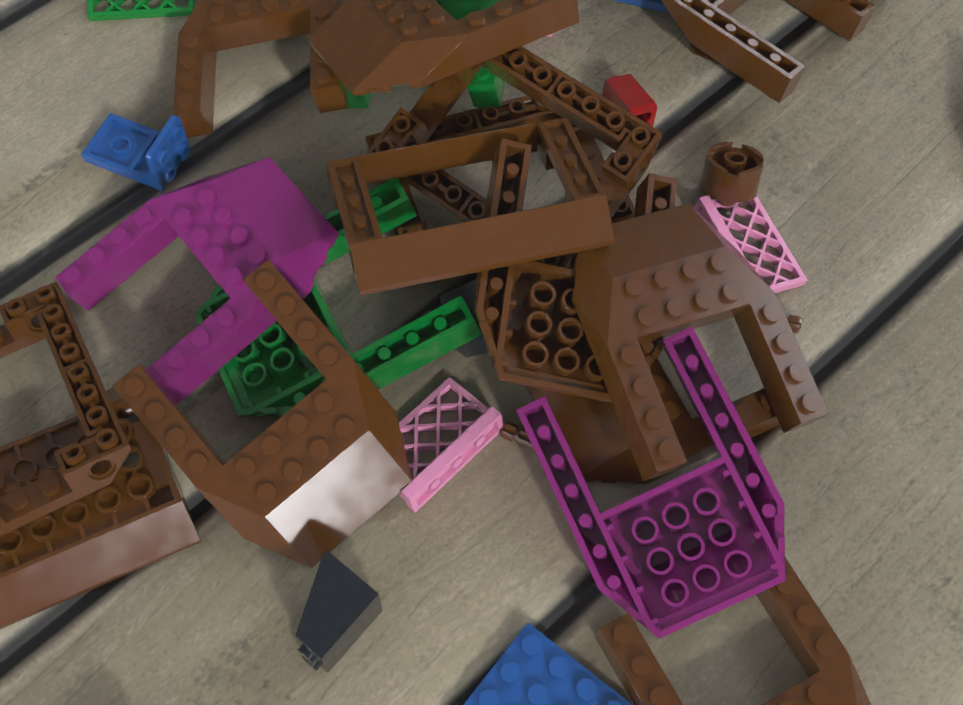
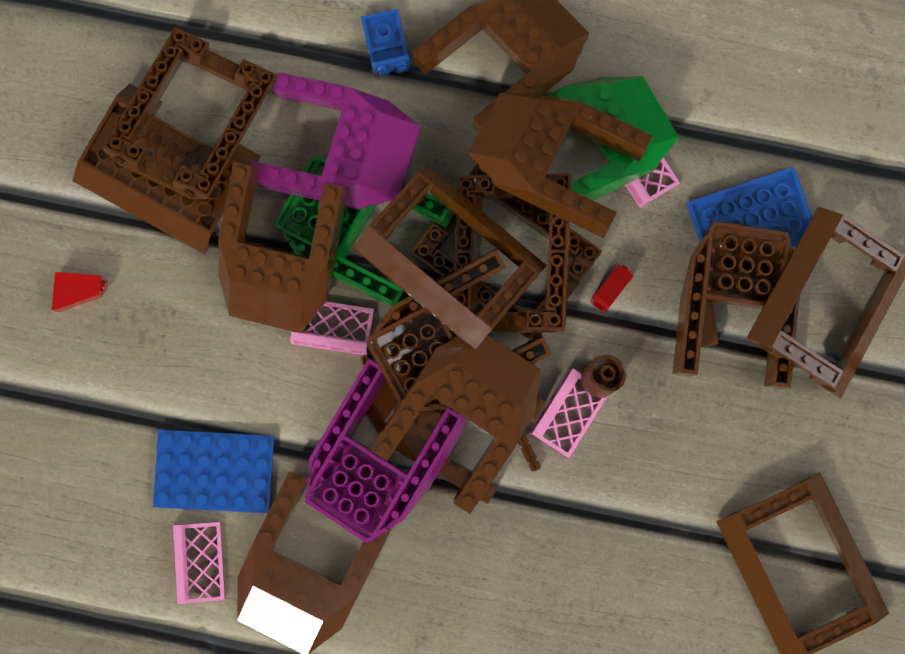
camera: 55 degrees right, 20 degrees up
(335, 613) = (211, 345): black slope -> none

